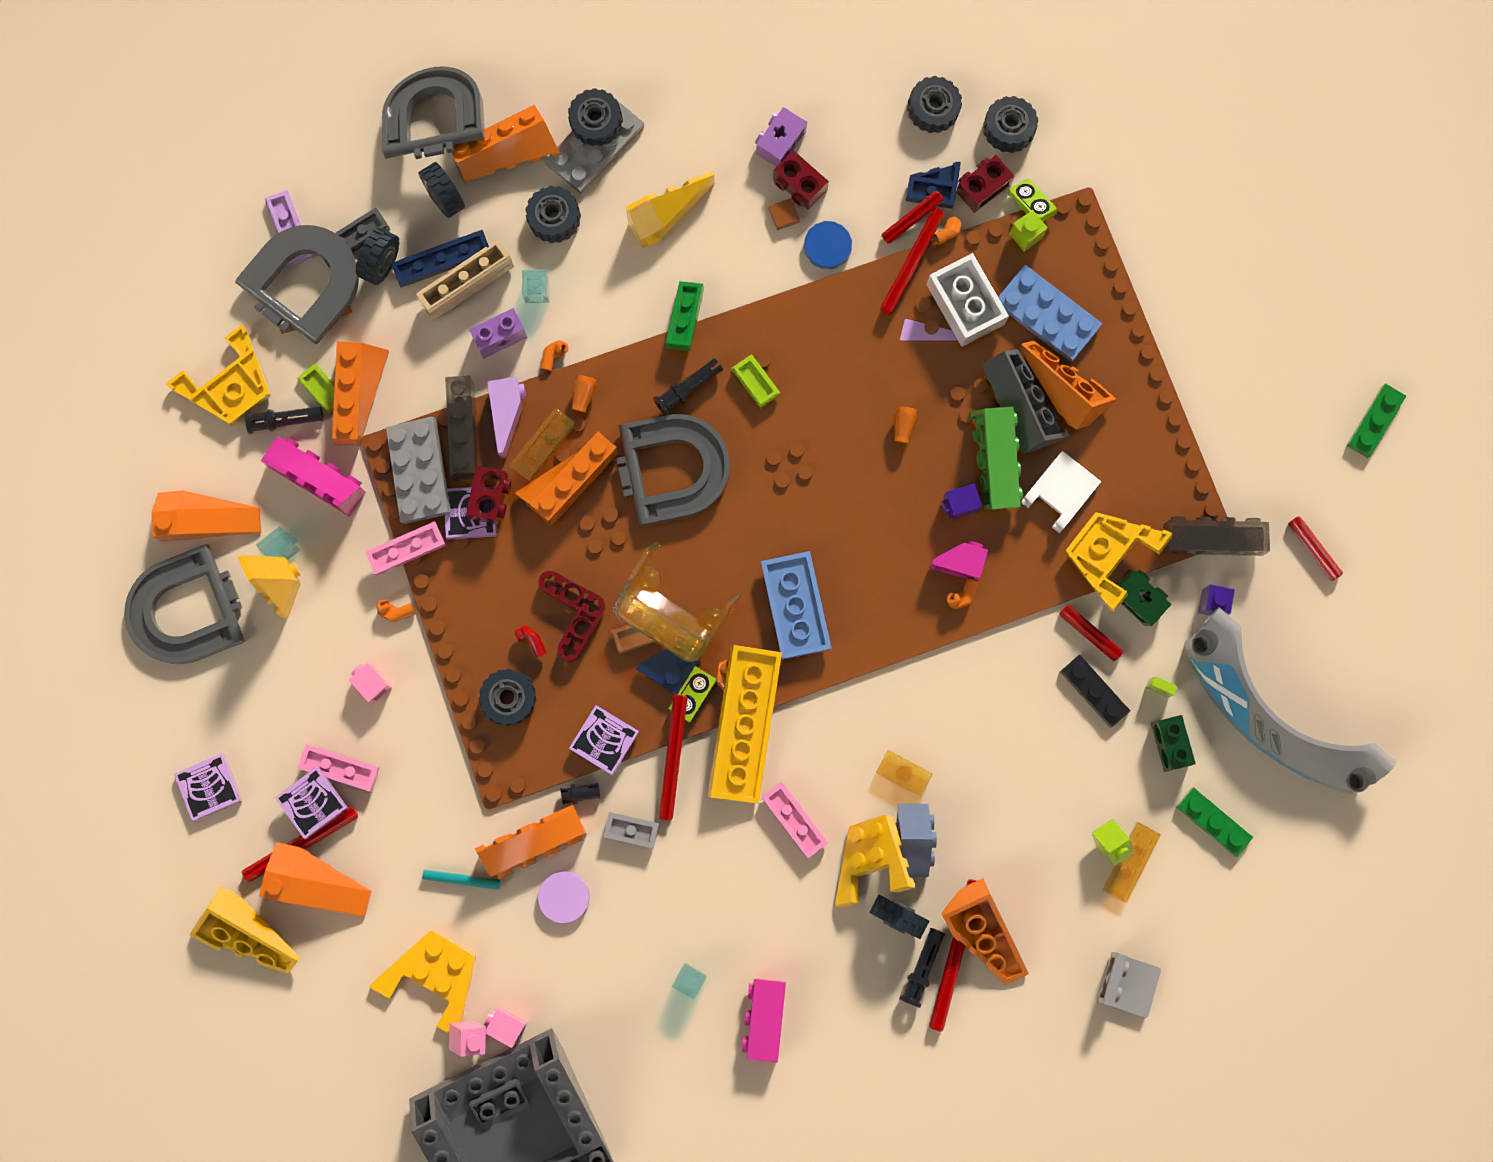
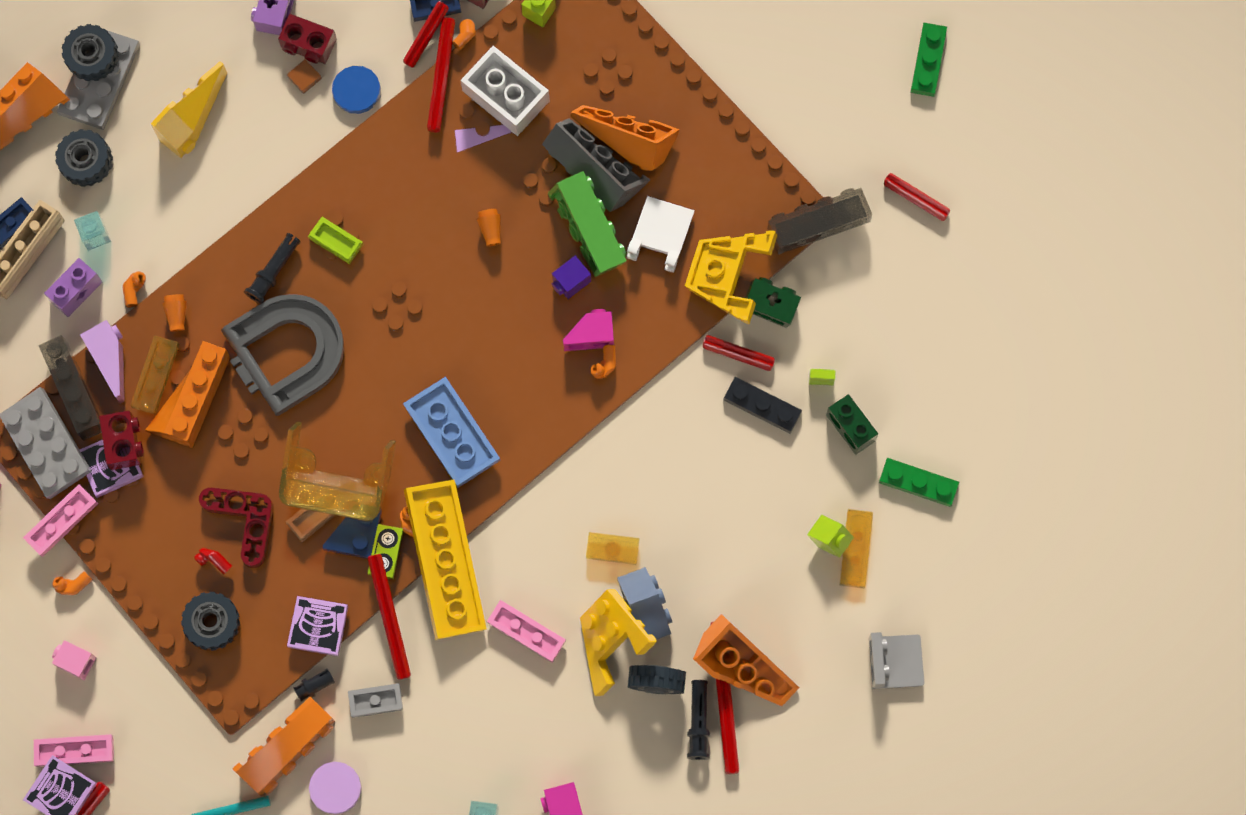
camera: 15 degrees left, 5 degrees down
(684, 316) = (245, 205): green plate -> none
(1048, 313) = (587, 75): medium blue plate -> none
(1215, 597) = (842, 279): dark purple brick -> none
(1228, 683) = (970, 387): light grey panel -> none

